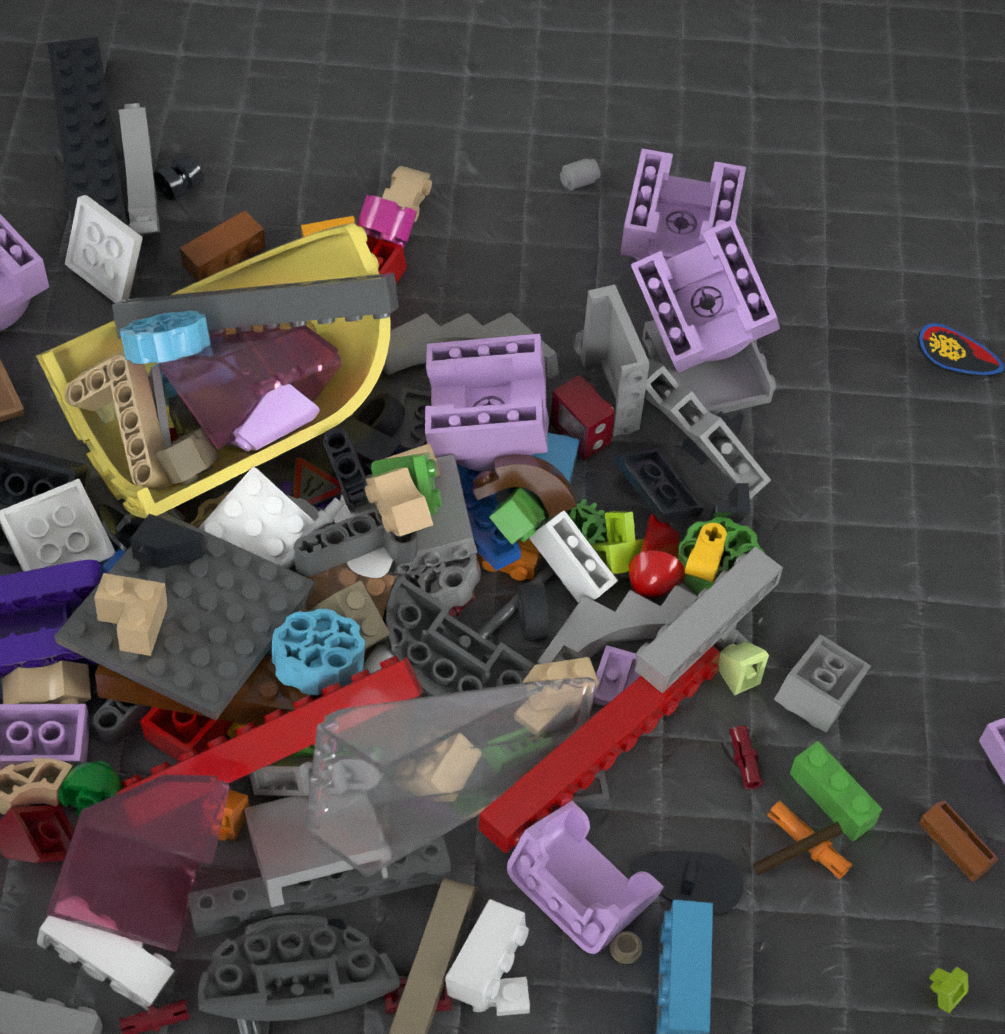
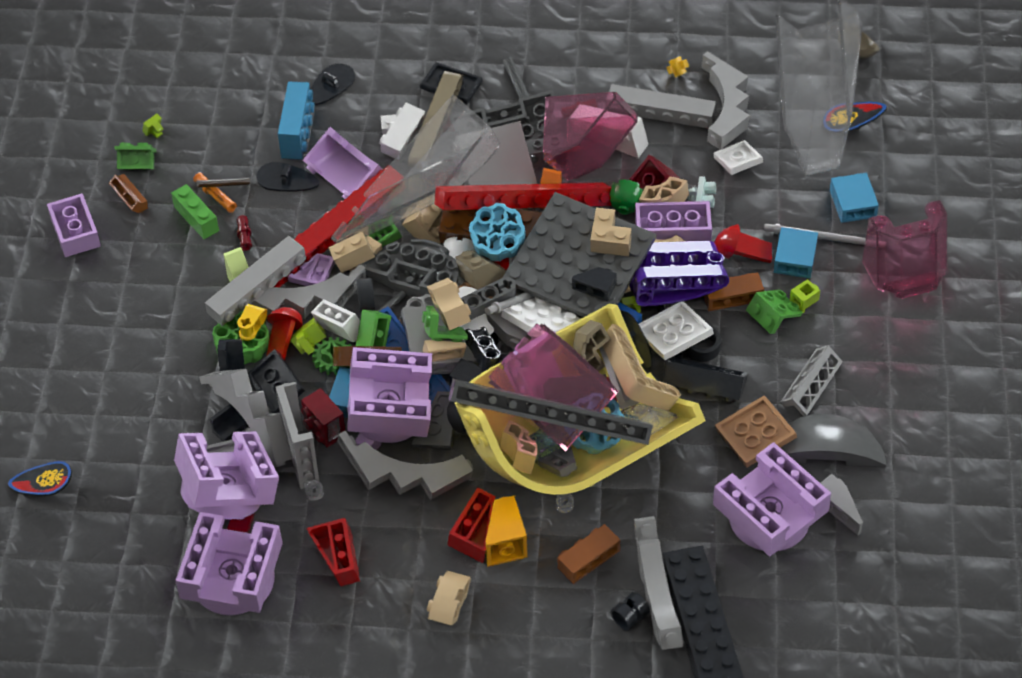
camera: 175 degrees left, 5 degrees down
(103, 250) = (674, 523): white plate -> none
(165, 337) = (605, 363): medium azure connector -> none
(386, 220) = (461, 554): dark pink brick -> none
(548, 252) = (337, 548): none -> red wedge
(580, 173) = (306, 628): light grey brick -> none
(822, 683) = (188, 269): light grey slope -> none
(966, 919) = (135, 156): none -> bright green bracket

